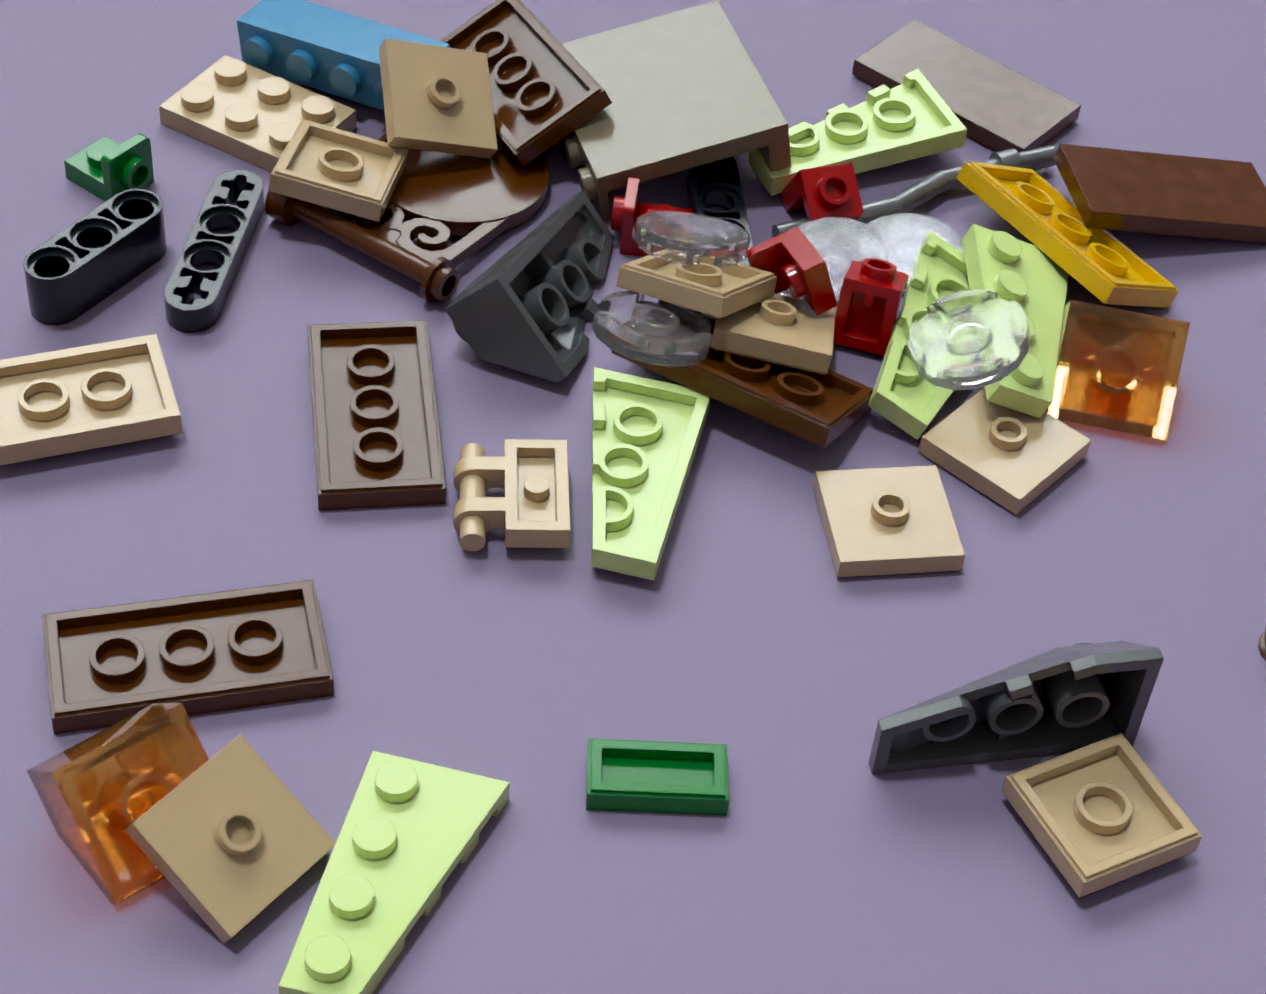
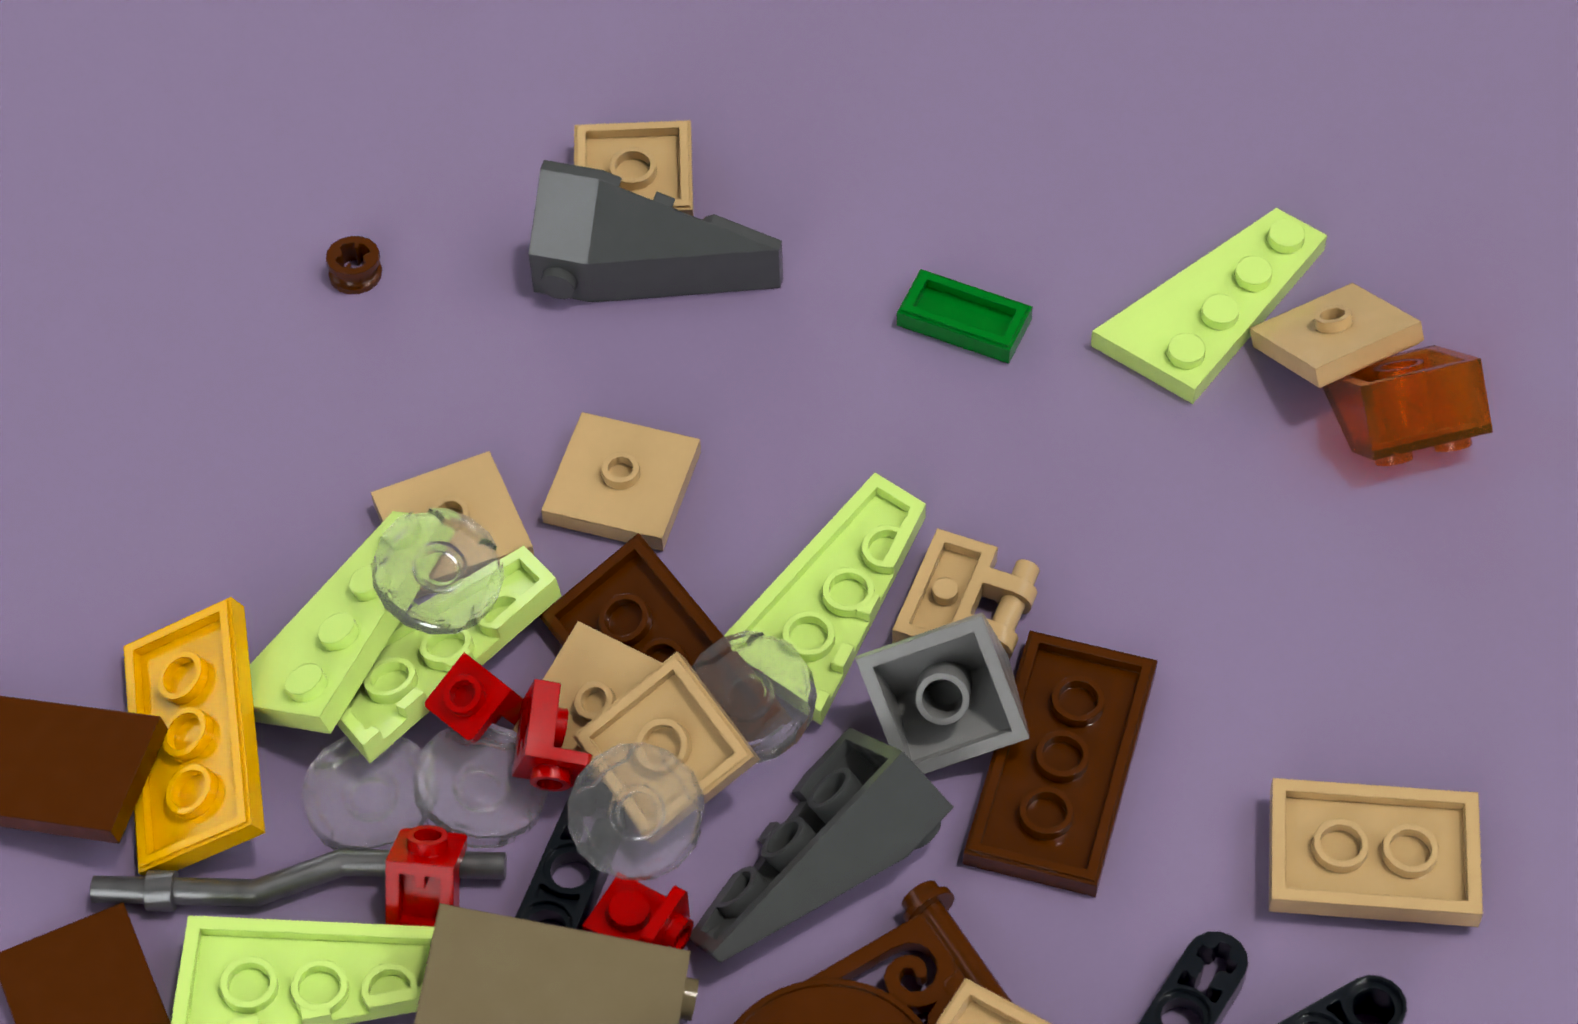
camera: 150 degrees left, 10 degrees up
(187, 650) = (1327, 541): tile -> none
(496, 395) = (945, 694): none -> light grey slope
(1118, 369) = (268, 553): clear orange slope -> none

